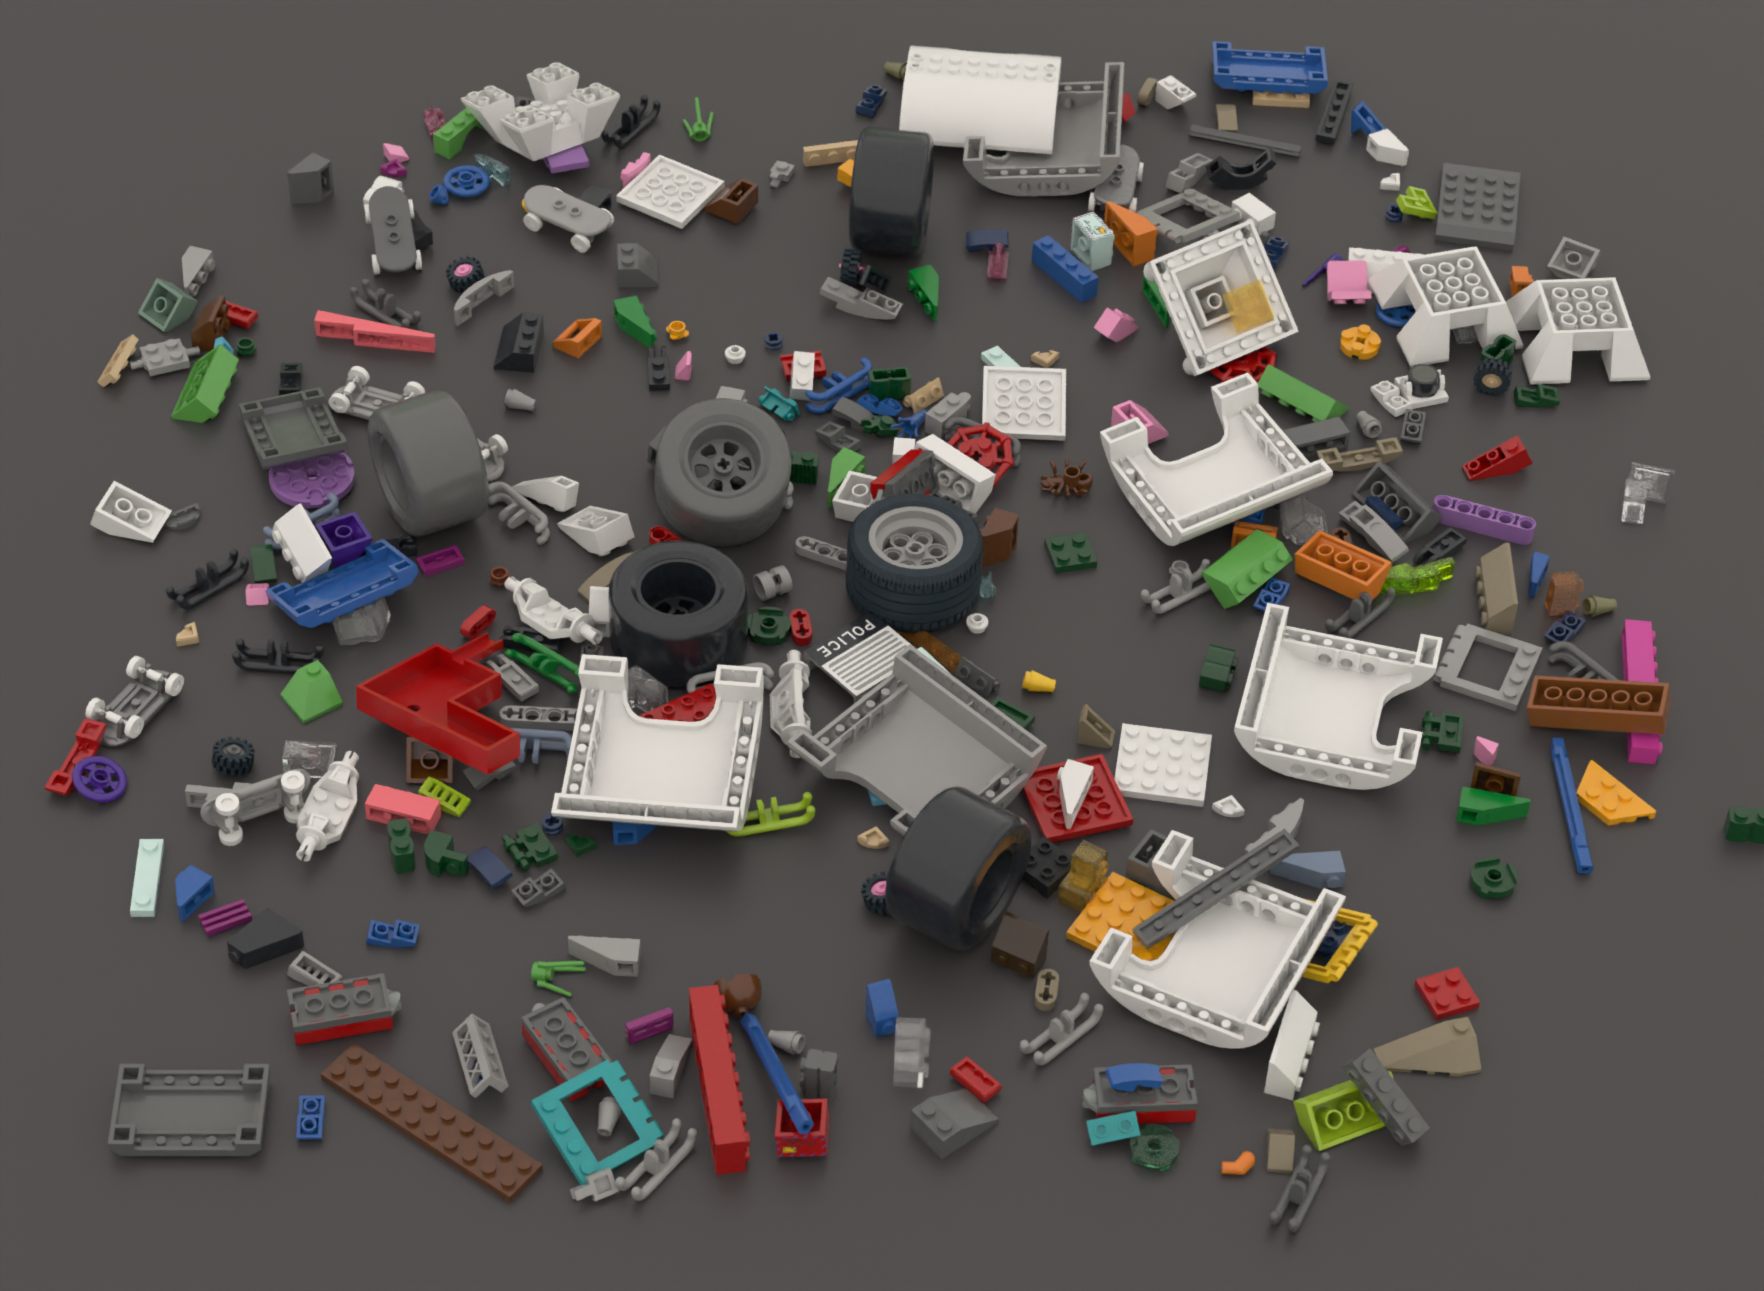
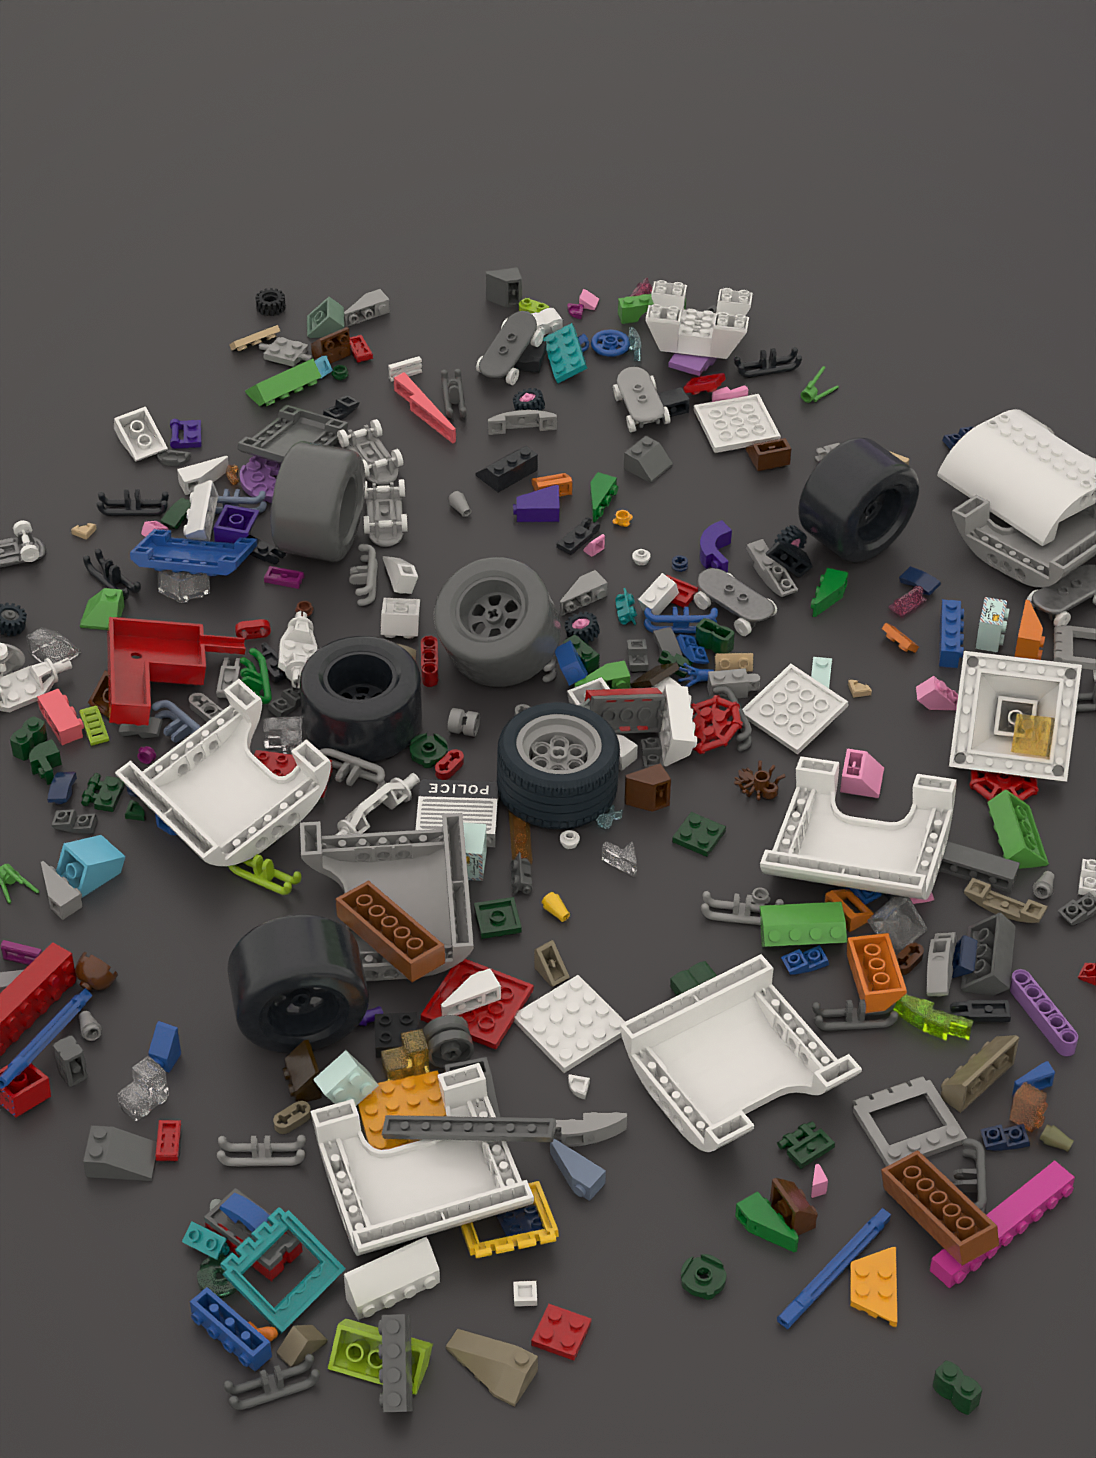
camera: 45 degrees right, 0 degrees up
(77, 318) = (270, 302): none -> black tyre
(170, 483) = (192, 434): none -> dark purple plate
(237, 521) = (201, 472): none -> white slope
(262, 496) = (231, 474): none -> clear orange arm
(306, 308) = (410, 370): none -> white tile
(351, 188) = (531, 306): none -> lime plate
(444, 212) = (565, 353): none -> teal plate
(527, 790) = (146, 754): none -> magenta plate
(594, 360) = (538, 506): none -> dark purple slope
(604, 170) = (709, 383): none -> red plate
(608, 909) = (89, 863): none -> medium azure slope
(788, 315) = (711, 541): none -> dark purple arch
(809, 477) = (570, 663): none -> blue slope
(866, 339) = (735, 597): none -> flat silver piece
(882, 444) = (655, 675): none -> dark brown tile
(920, 777) = (390, 931): none -> dark orange brick
(1021, 296) = (894, 634): none -> orange plate
(1044, 609) = (621, 859): none -> clear slope
(1071, 926) = (346, 1080): none -> light aqua brick
(1105, 834) = (448, 1040): none -> dark grey wheel
(1221, 1175) = (230, 1329): none -> blue brick
(1236, 1098) = (304, 1292): none -> teal hinge
(1390, 985) = (525, 1293): none -> white plate

